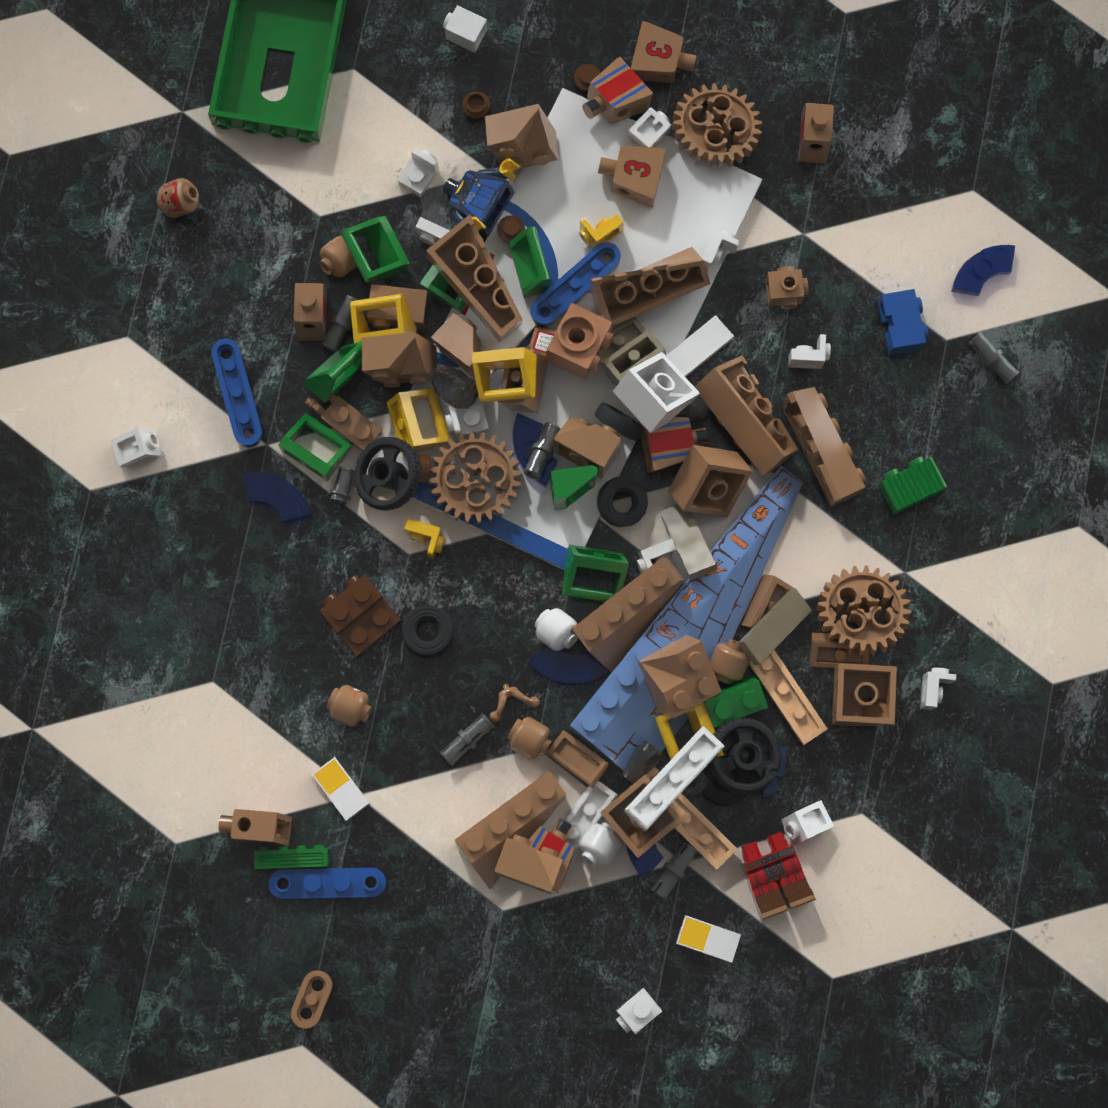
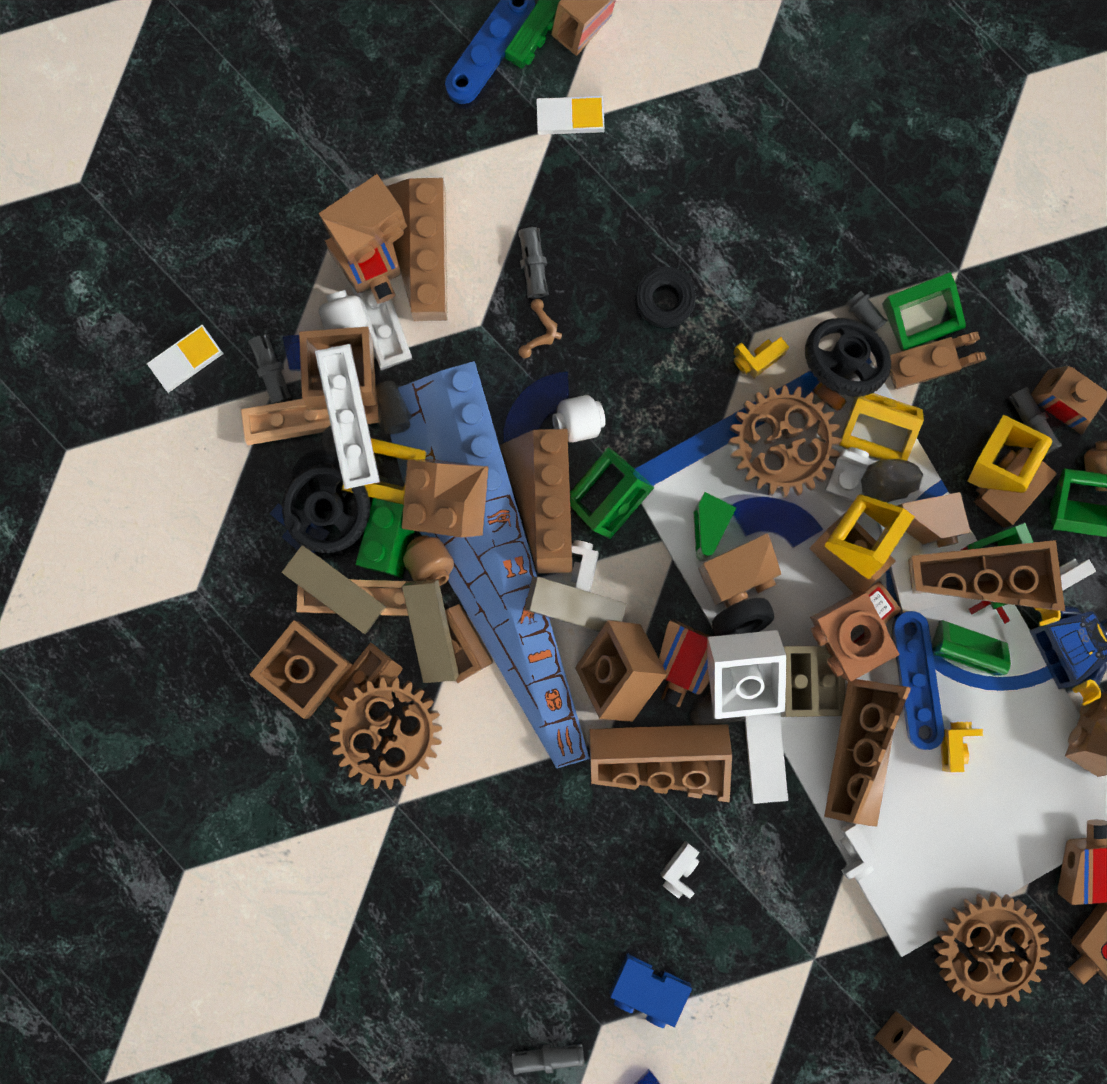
camera: 130 degrees right, 5 degrees up
(135, 446) = (1042, 142): white bracket -> none
(237, 393) = (1032, 272): blue plate -> none
(276, 493) = (901, 246): clear blue tile -> none
(336, 371) = (988, 380): green tile -> none
(349, 705) = (644, 173): medium nougat head -> none
(359, 614) = (726, 243): reddish brown plate -> none
(399, 359) = (958, 445): medium nougat slope -> none
(509, 228) = (1023, 656): reddish brown plate -> none
(529, 738) = (492, 321): medium nougat head -> none
(541, 451) = (765, 522): dark grey pin -> none
(578, 759) = (439, 353): medium nougat tile -> none
(606, 496) = (640, 571): black tyre -> none
(635, 172) = (996, 826): medium nougat torso -> none
(637, 1012) = (166, 244): white bracket -> none
(650, 128) = (1034, 877): white bracket -> none
(776, 867) = (205, 463): hips -> none
(786, 287) = (758, 886): medium nougat brick -> none
(795, 712) = (333, 589): none -> dark tan tile
(807, 823) = (222, 528): white bracket -> none
(823, 446) = (578, 813): medium nougat wedge -> none
(911, 485) = (475, 875): green brick -> none
(931, 691) = (258, 741): white bracket -> none

